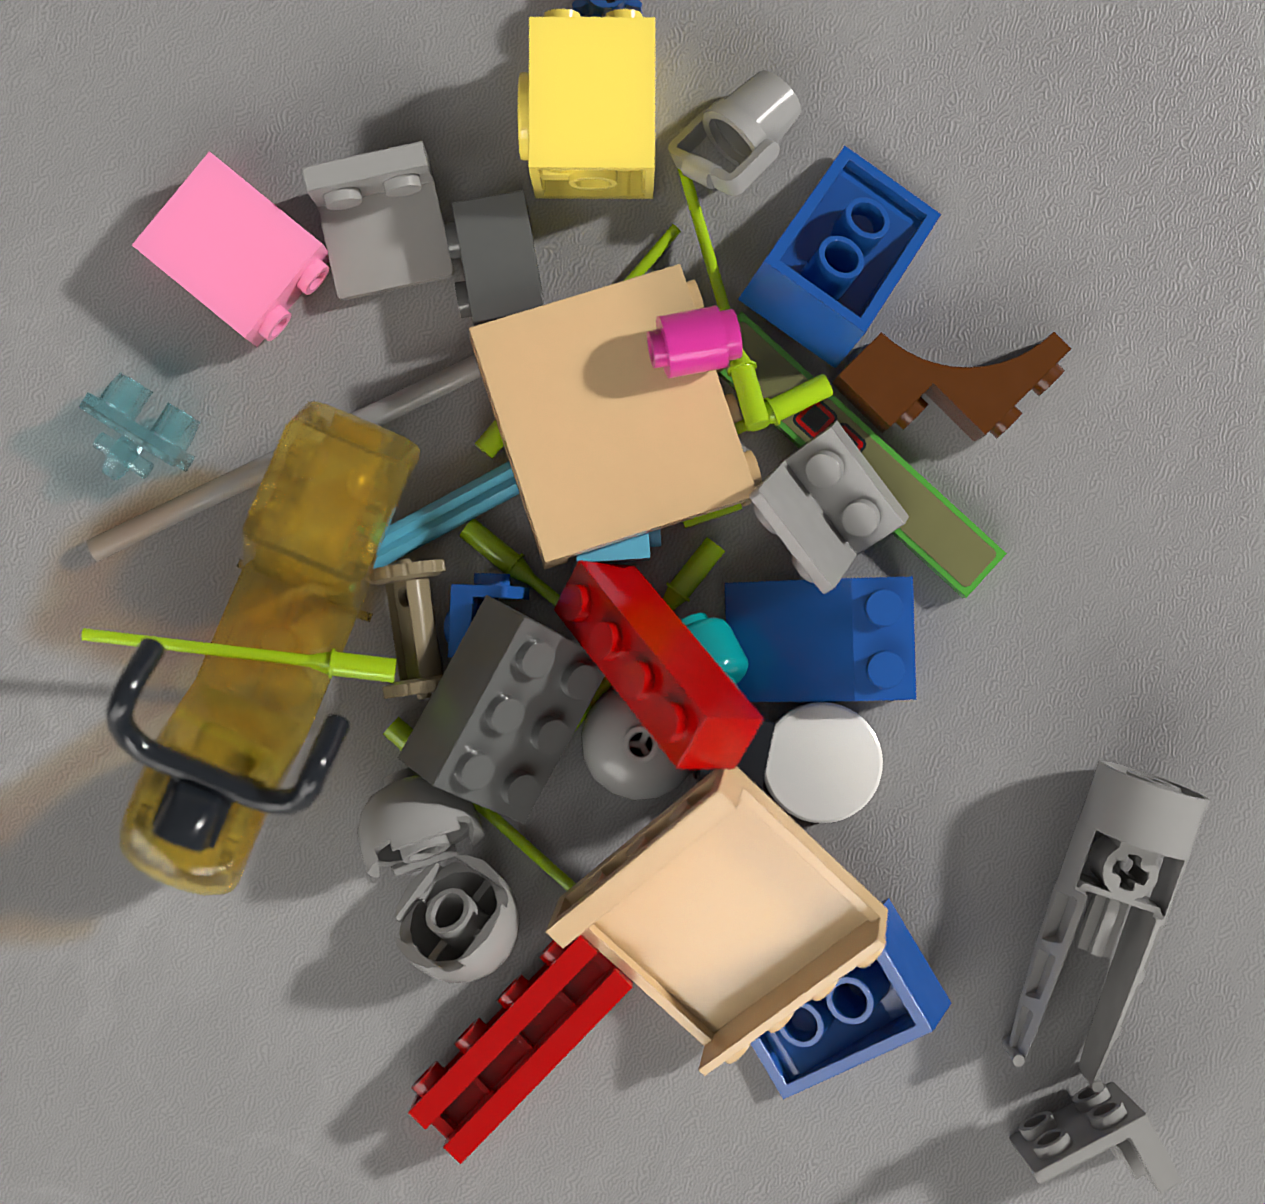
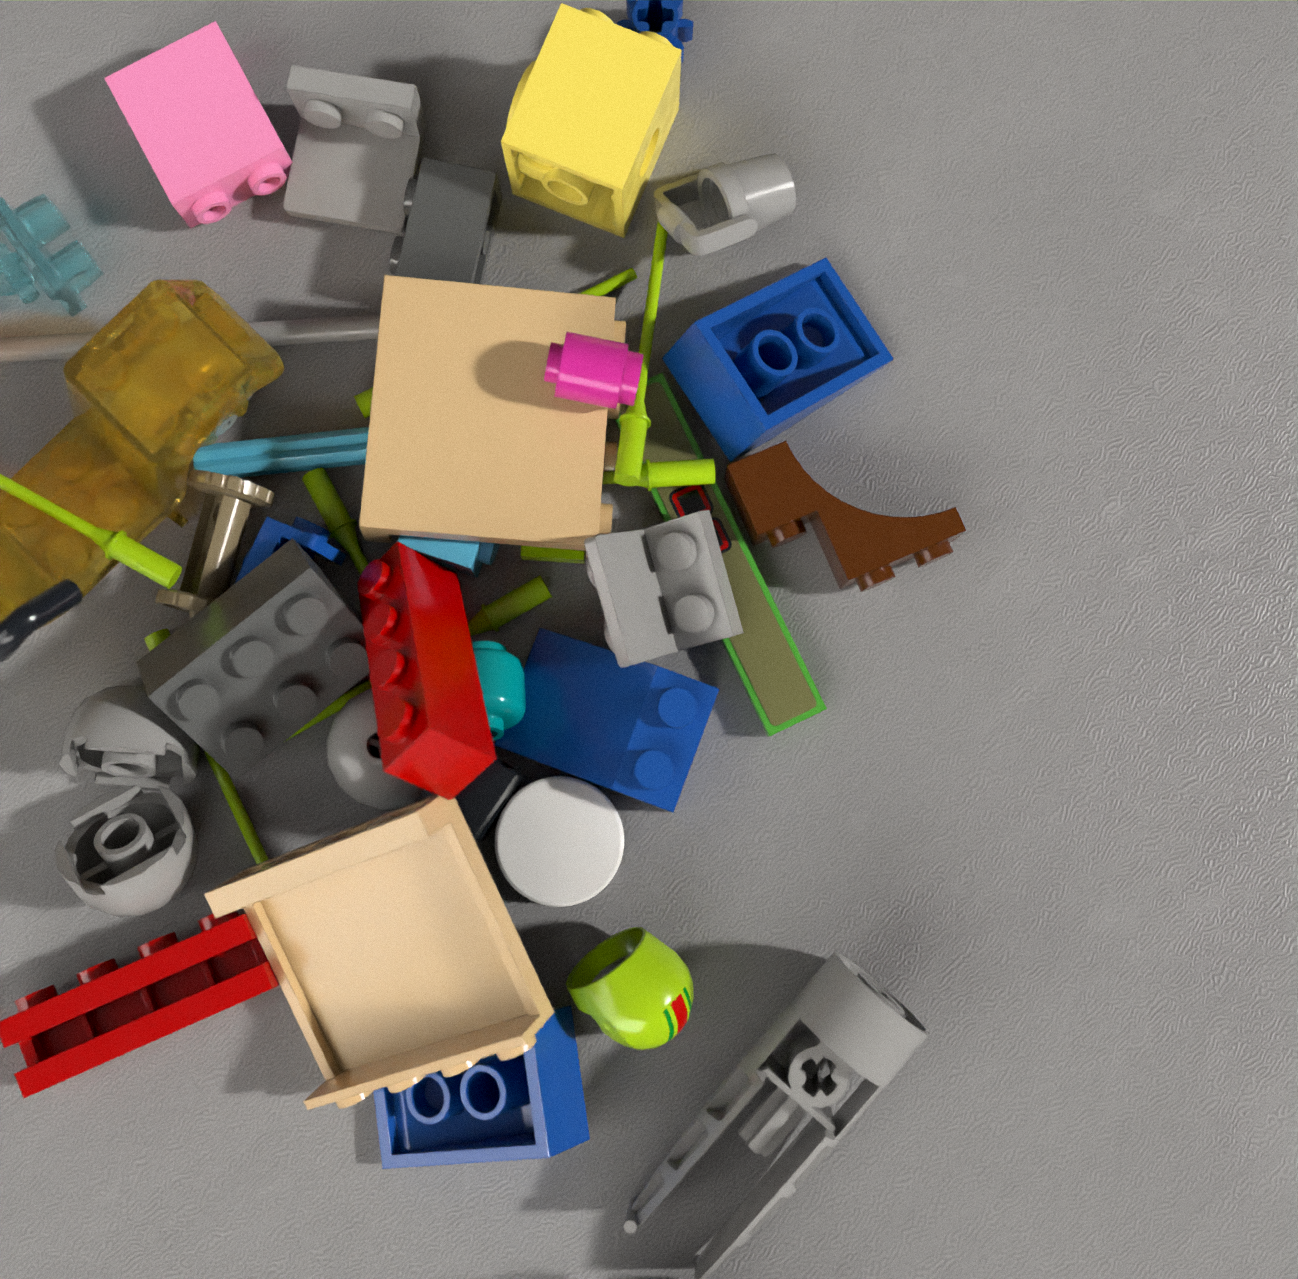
camera: 25 degrees right, 5 degrees down
(952, 870) = (642, 998): none -> lime helmet

